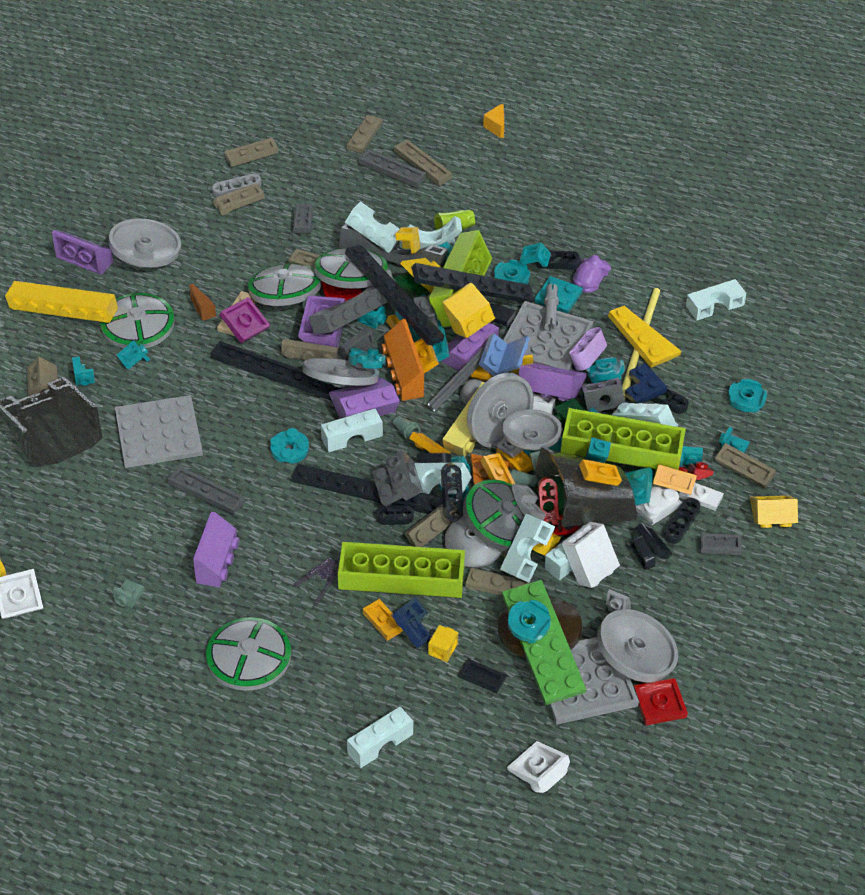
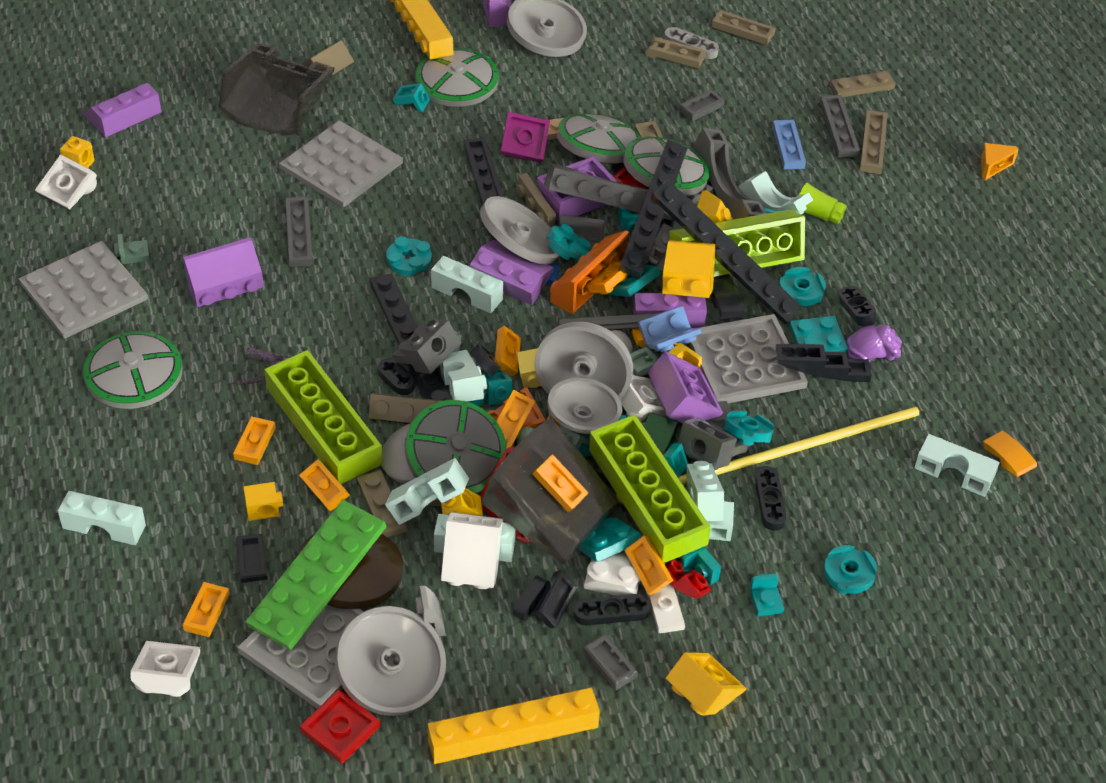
camera: 50 degrees right, 0 degrees up
(82, 375) = (355, 76): teal bracket -> none
(137, 642) = (83, 289): none -> light grey plate
(202, 303) = (518, 99): dark orange slope -> none
(362, 220) = (730, 164): light aqua arch -> none
(384, 201) = (788, 144): none -> medium blue plate
(406, 426) = (515, 320): sand green cone -> none
(409, 238) = (745, 180): yellow panel -> none
(409, 618) = (262, 455): dark blue plate -> none
(457, 477) = (448, 383): black beam -> none
(458, 603) = (324, 485): none -> light orange plate
(508, 721) = (206, 609): none -> light orange plate
(526, 501) = (486, 458): light grey slope -> none
(529, 632) = (317, 554): teal plate -> none
(535, 253) = (841, 284): teal bracket -> none
(551, 302) = (791, 332): light grey pin -> none
(587, 304) = (815, 361): none -> black slope
(588, 349) = (761, 397): lavender beam -> none
(598, 450) = (603, 471): teal bracket -> none
(646, 340) = (831, 435): yellow wing -> none
(647, 385) = (764, 475): dark blue plate -> none
(727, 271) = (1011, 453): none -> light orange slope
(732, 616) = (513, 725): none -> yellow brick
(745, 465) = (743, 623): dark tan plate -> none

